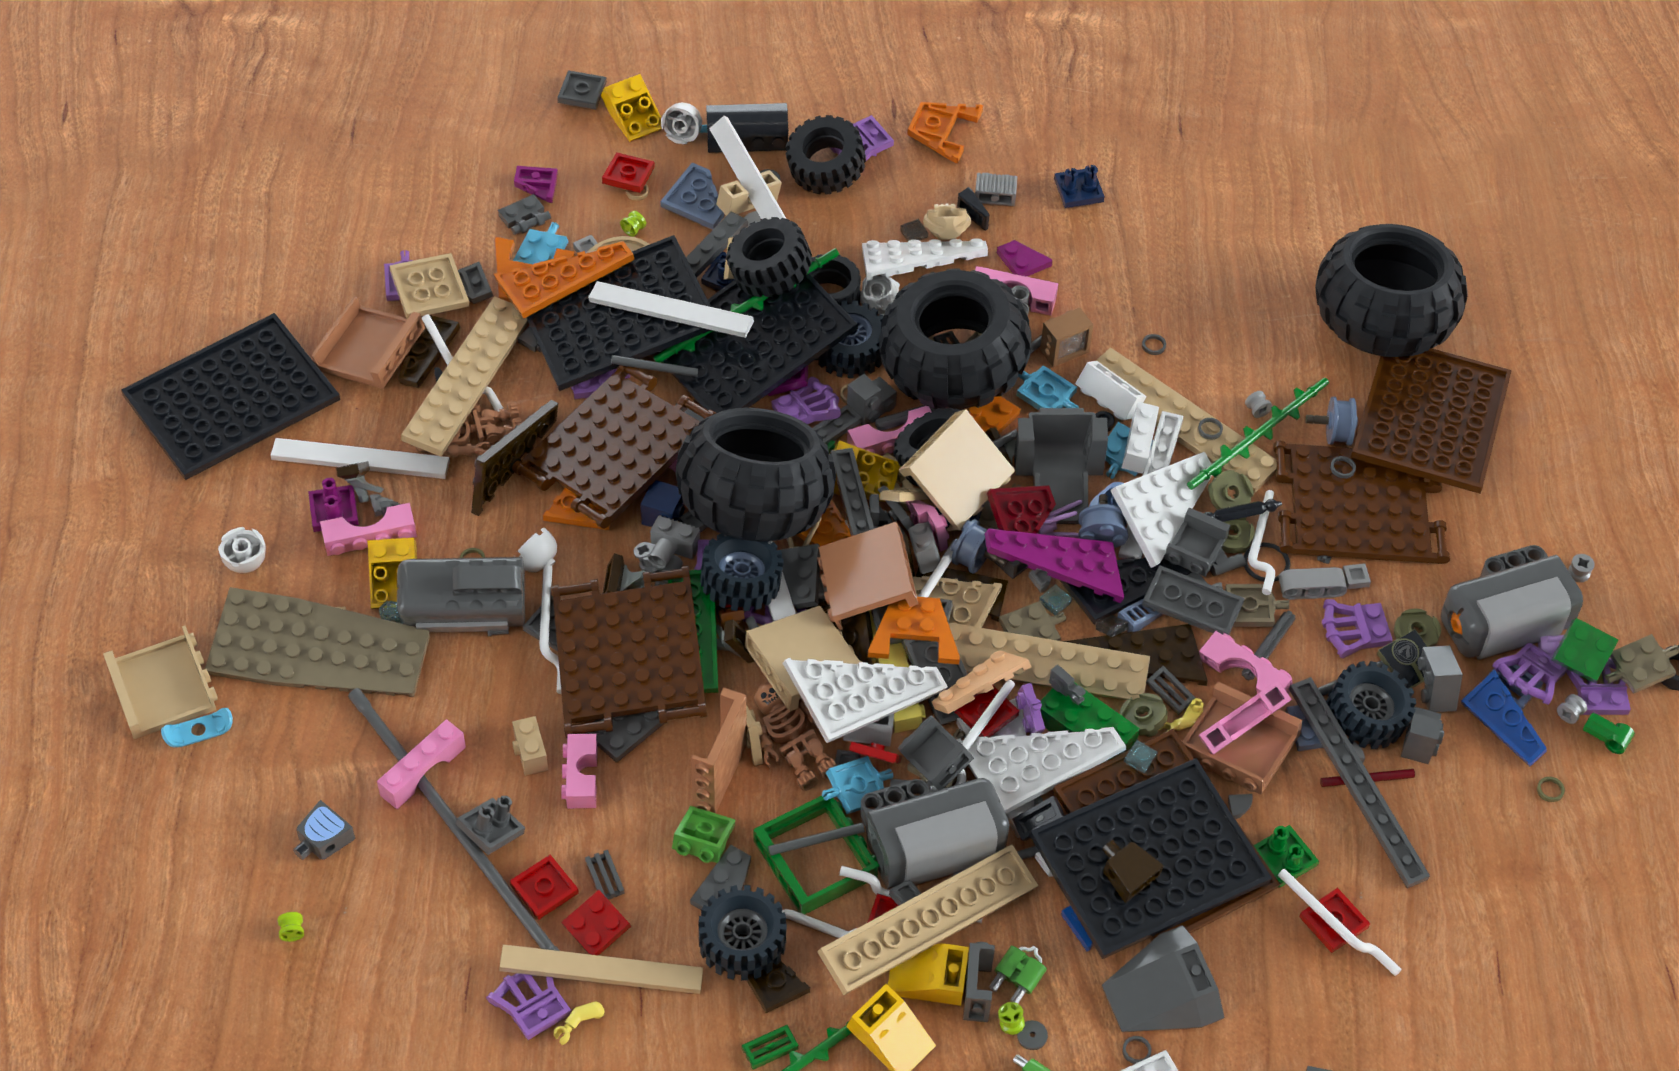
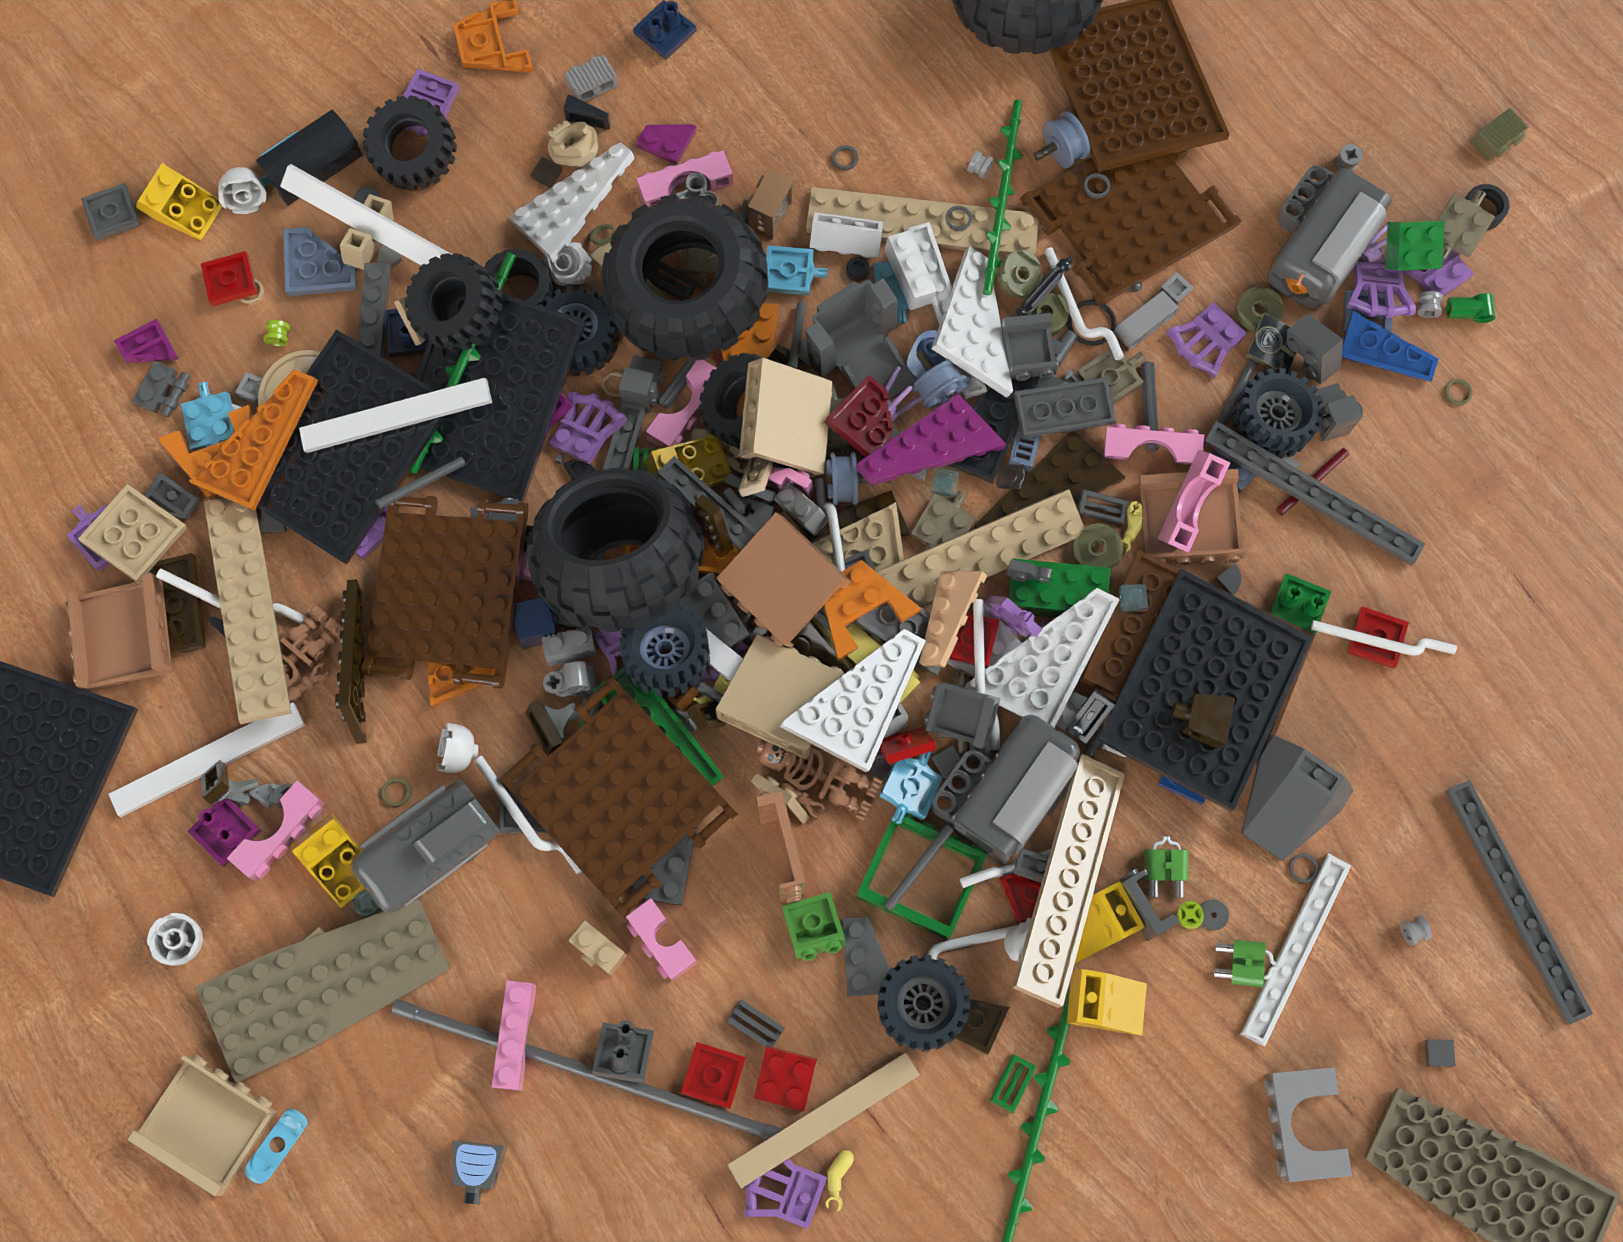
camera: 35 degrees left, 20 degrees up
(841, 501) = (713, 525): none -> dark brown wing

